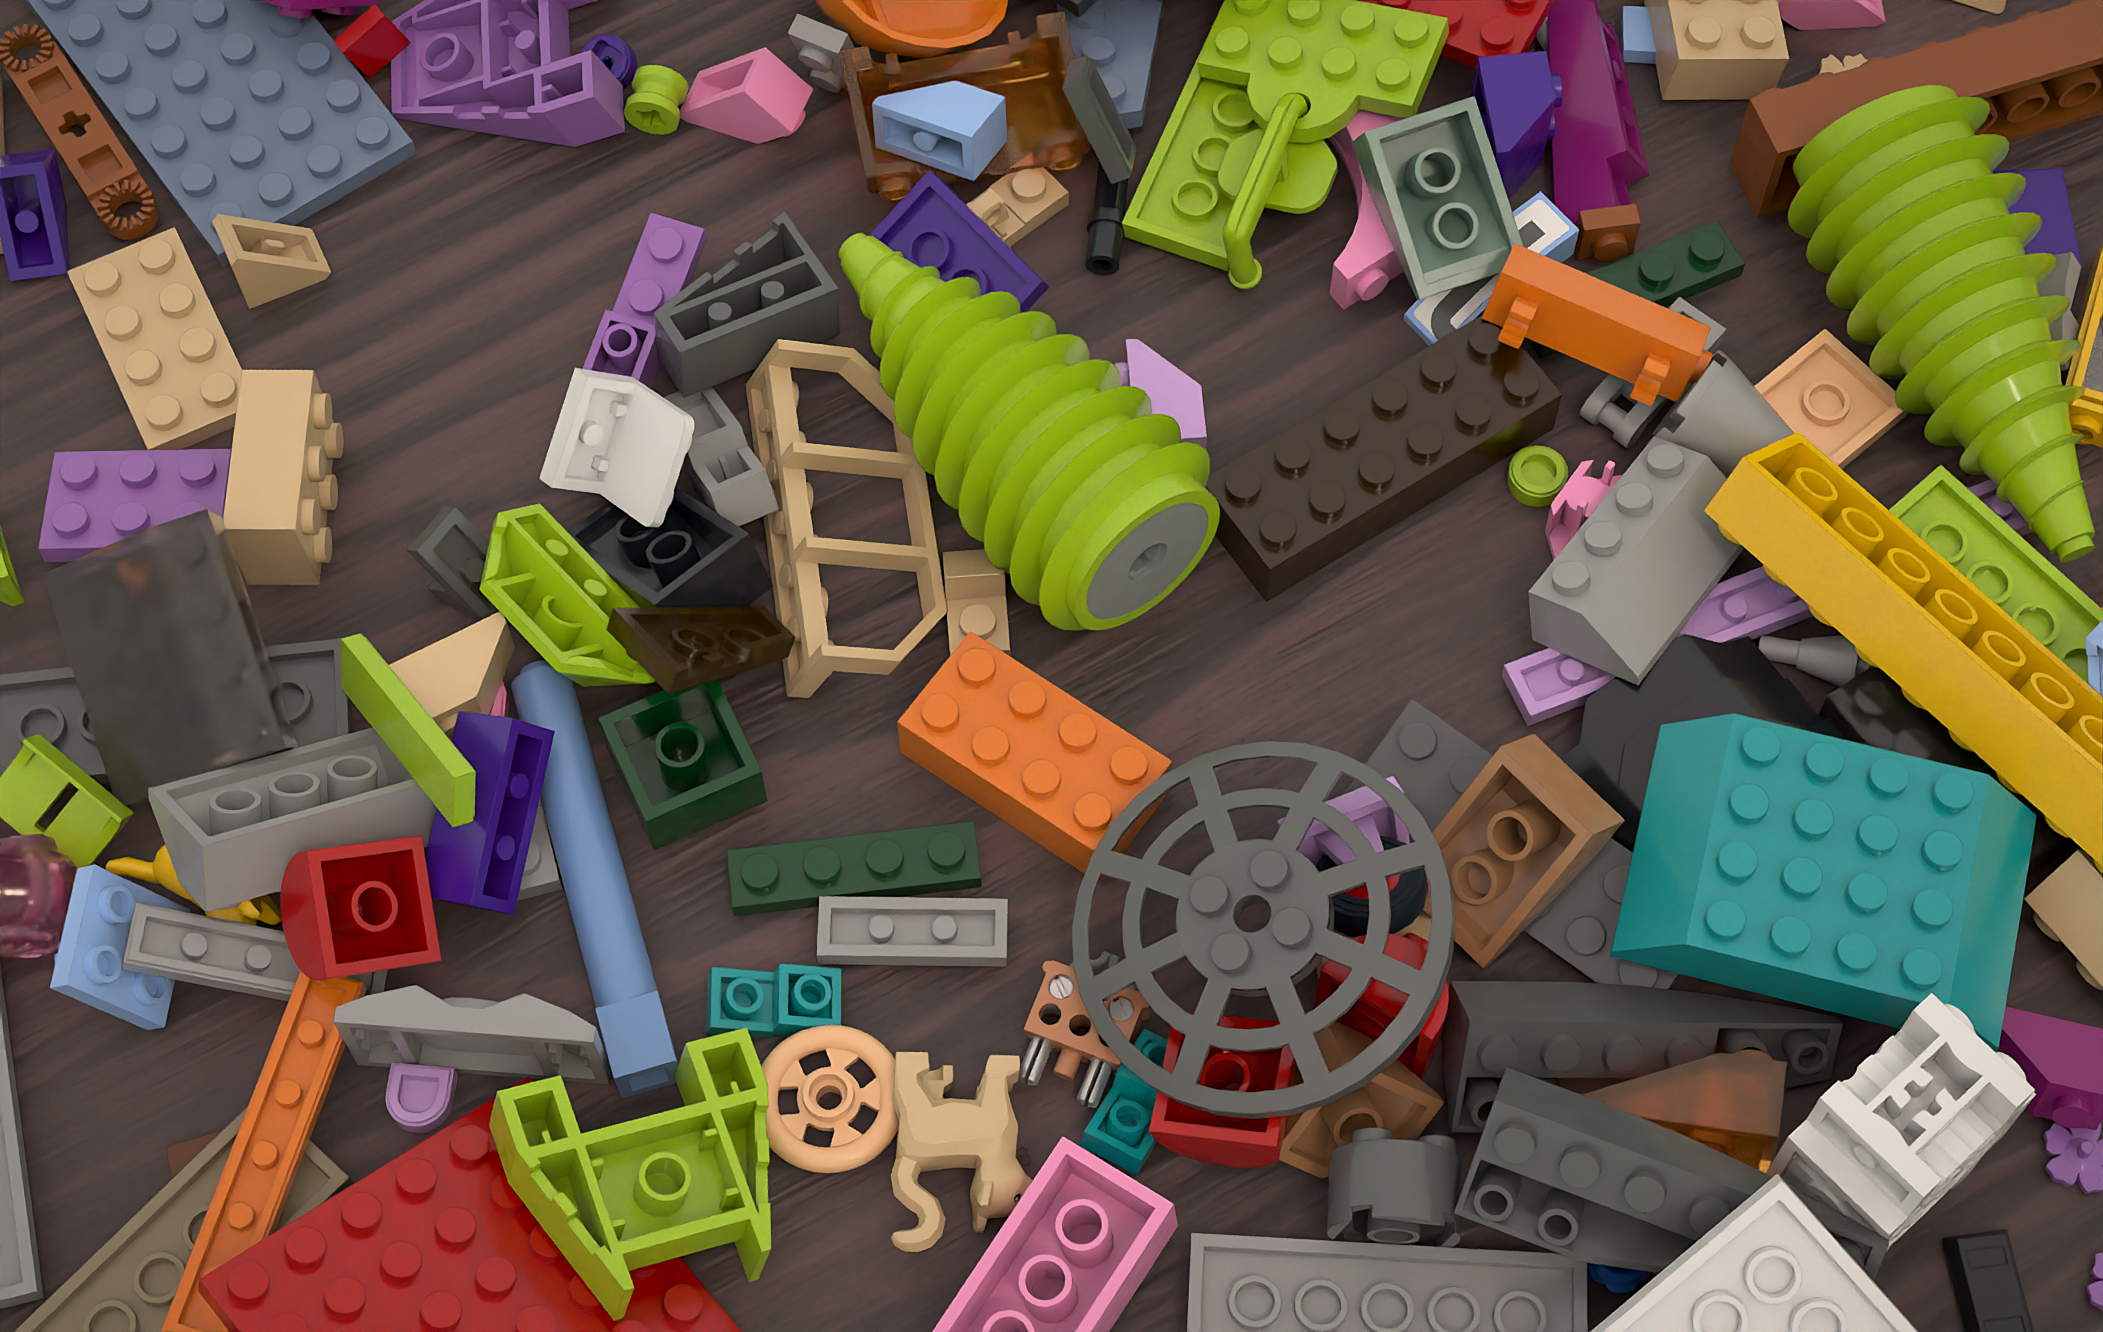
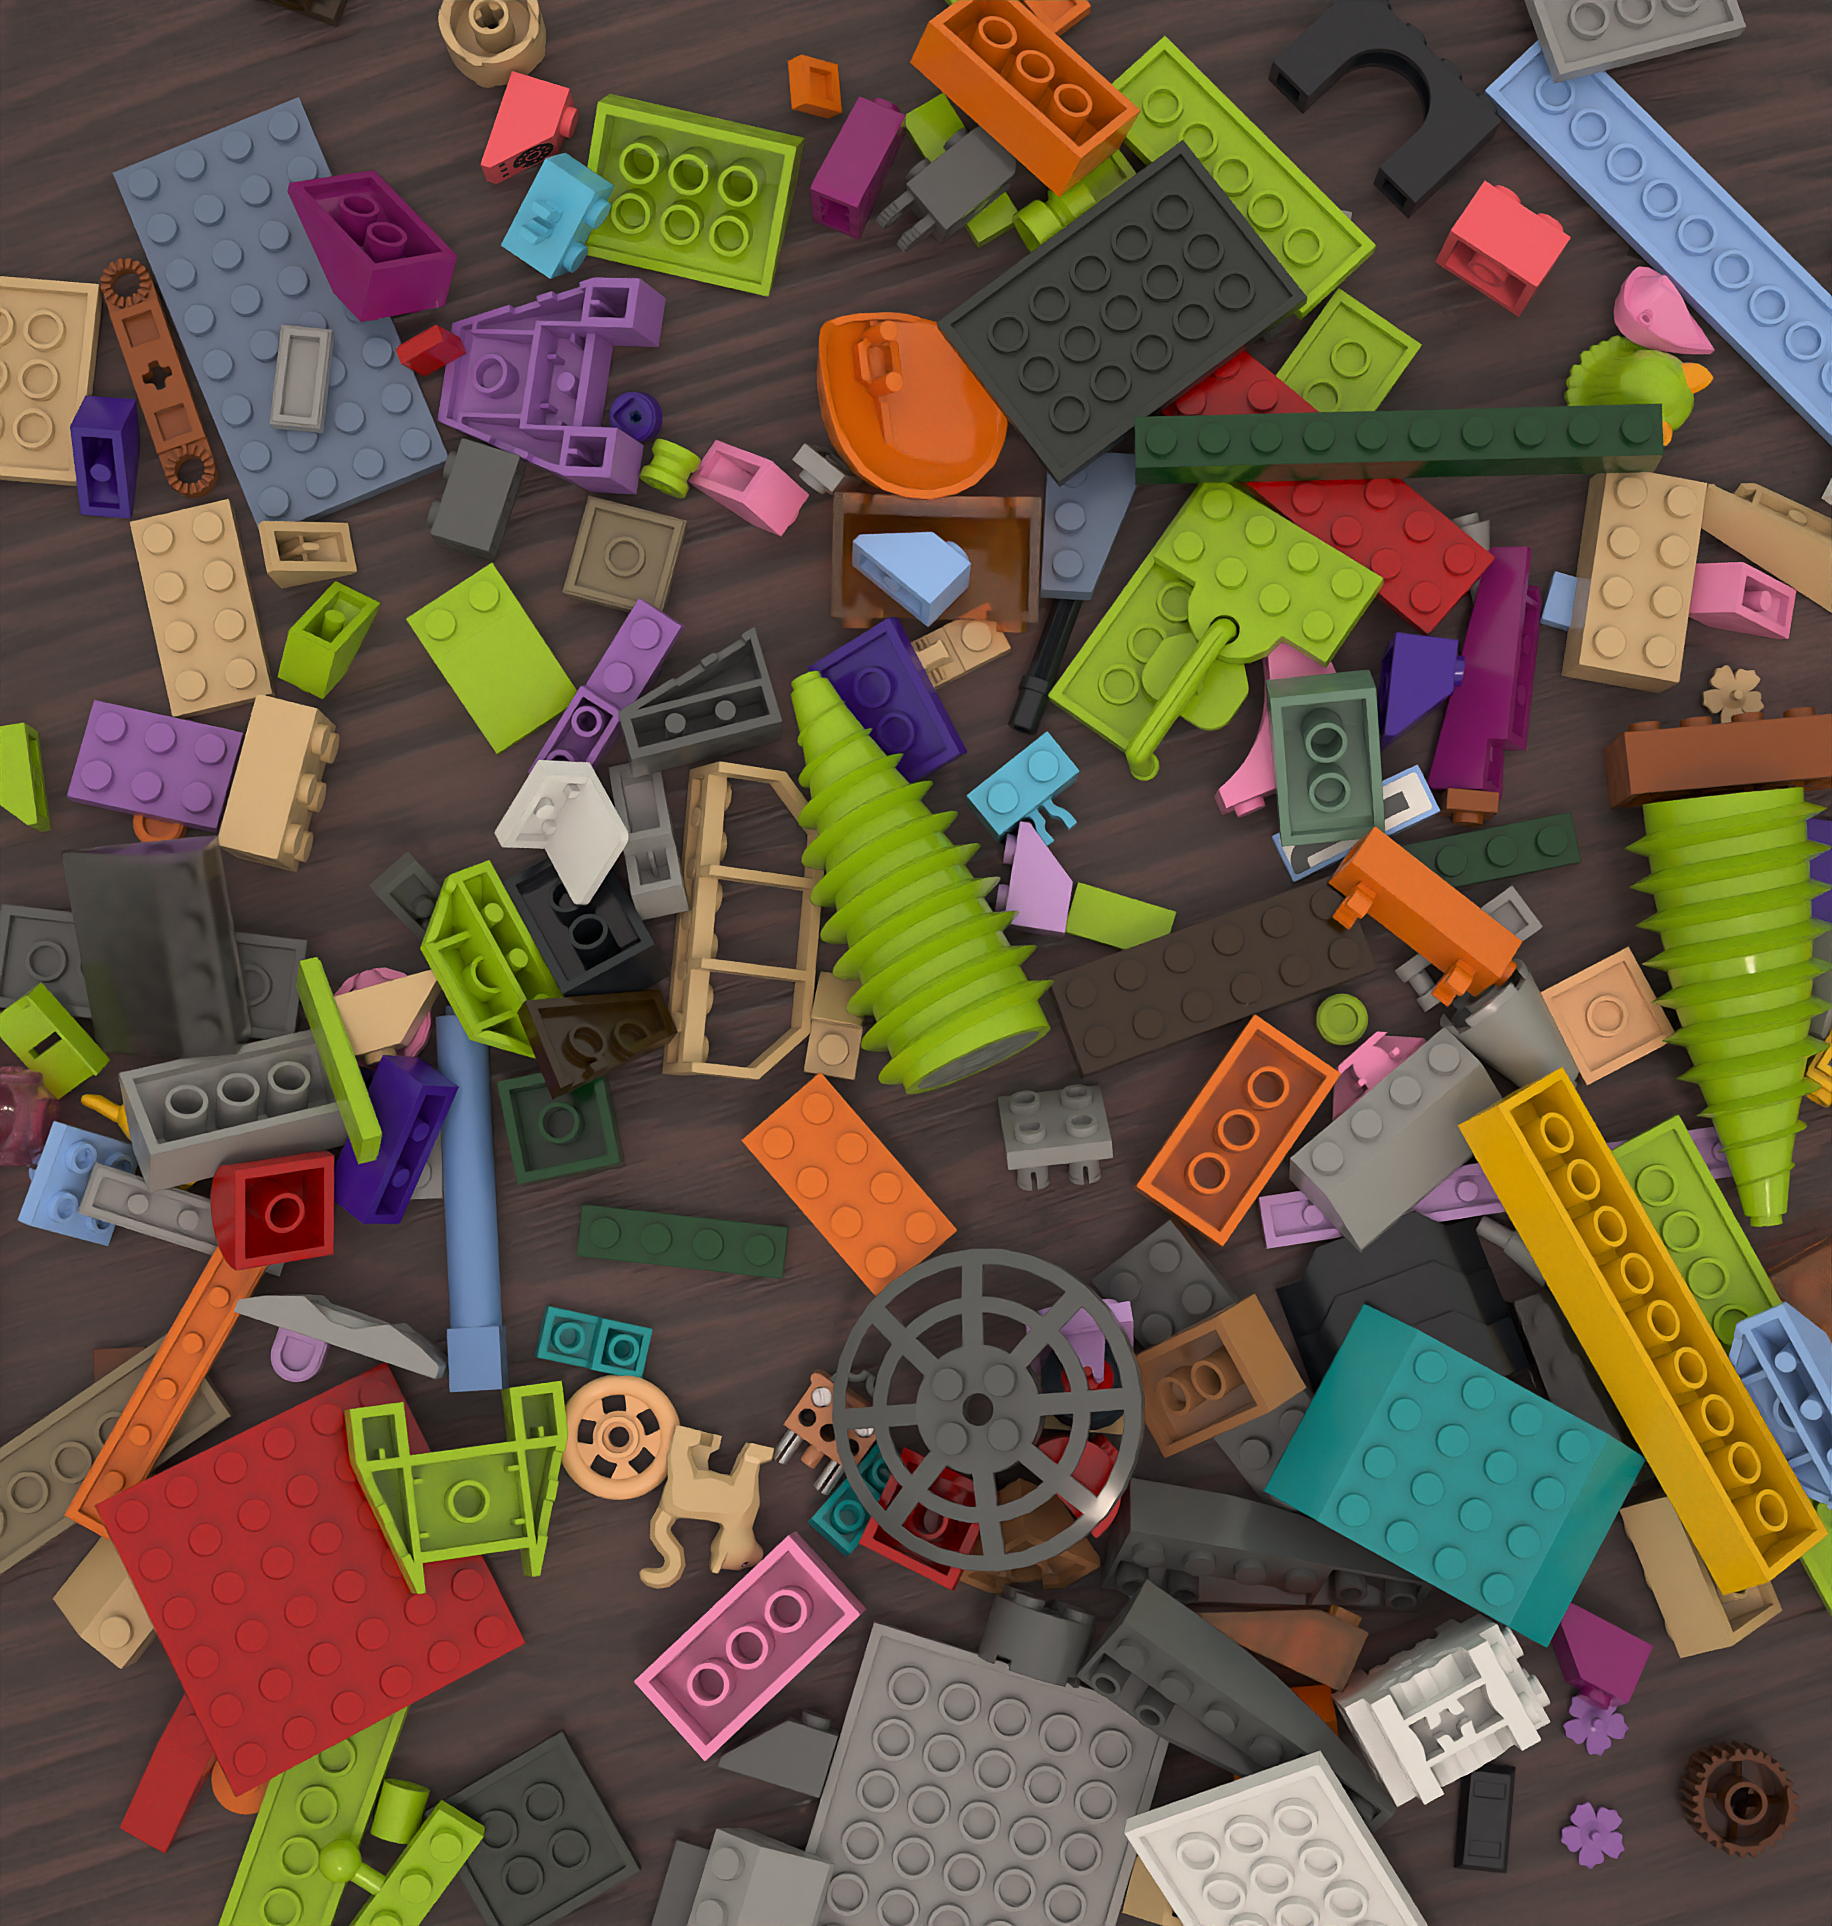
camera: 15 degrees right, 20 degrees up
(236, 92) = (302, 379): none -> light grey tile
(311, 332) = (327, 639): none -> lime slope
(450, 170) = (476, 499): none -> dark grey brick
(498, 314) = (494, 658): none -> lime slope
(618, 188) = (624, 556): none -> dark tan plate
(912, 931) = (716, 1312): light grey plate -> none
(1099, 119) = (1048, 608): dark grey tile -> none
(1125, 304) = (1023, 789): none -> medium azure brick
(1242, 426) = (1115, 918): none -> lime tile
(1270, 628) = (1055, 1130): none -> light grey plate
(1457, 597) = (1236, 1131): none -> orange brick

